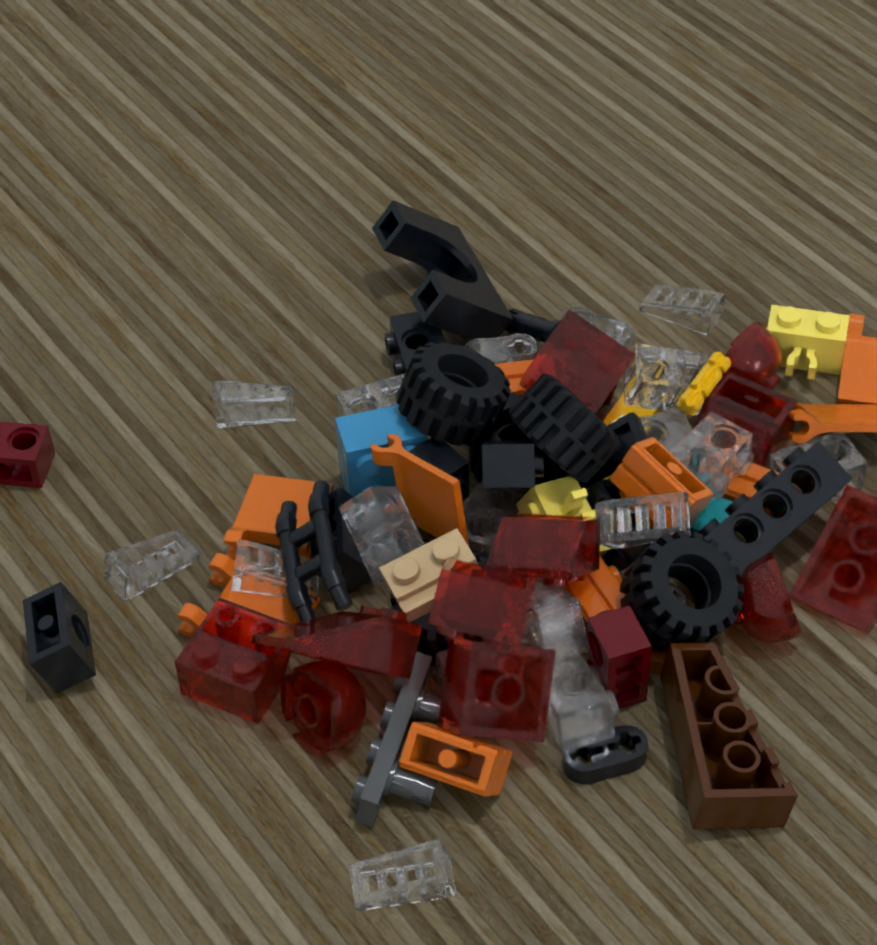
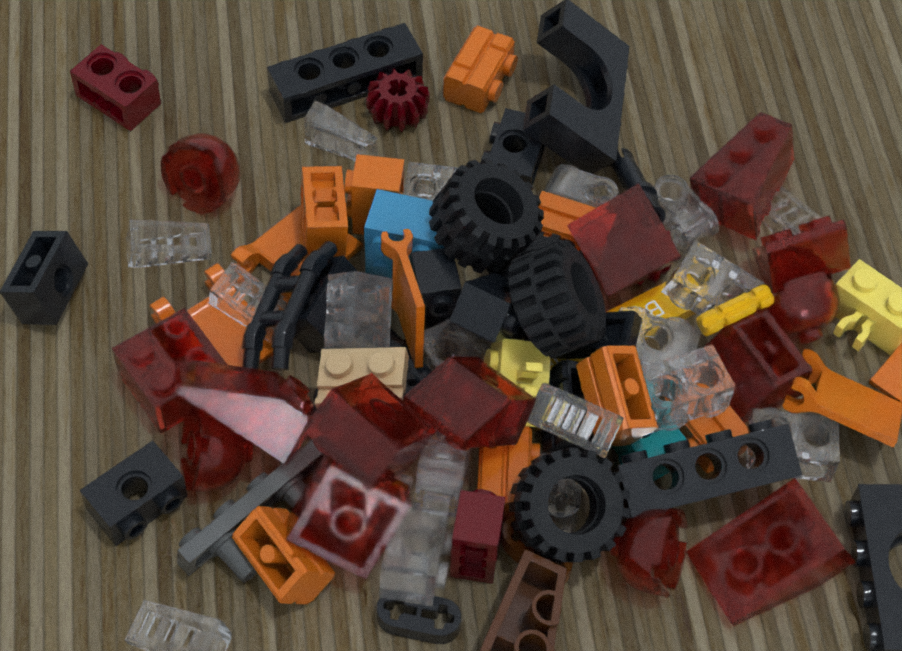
camera: 25 degrees right, 10 degrees up
(145, 486) = (201, 171): none -> clear red cylinder
(216, 352) = (342, 71): none -> black brick
(278, 754) = (143, 472): none -> black brick
(282, 353) = (397, 100): none -> dark red gear
(286, 462) = (323, 208): none -> orange brick
(317, 430) = (362, 182): none -> orange brick
(338, 300) = (479, 69): none -> orange brick
(629, 283) = (746, 174): none -> clear red wedge
(724, 315) = (818, 248): none -> clear red slope

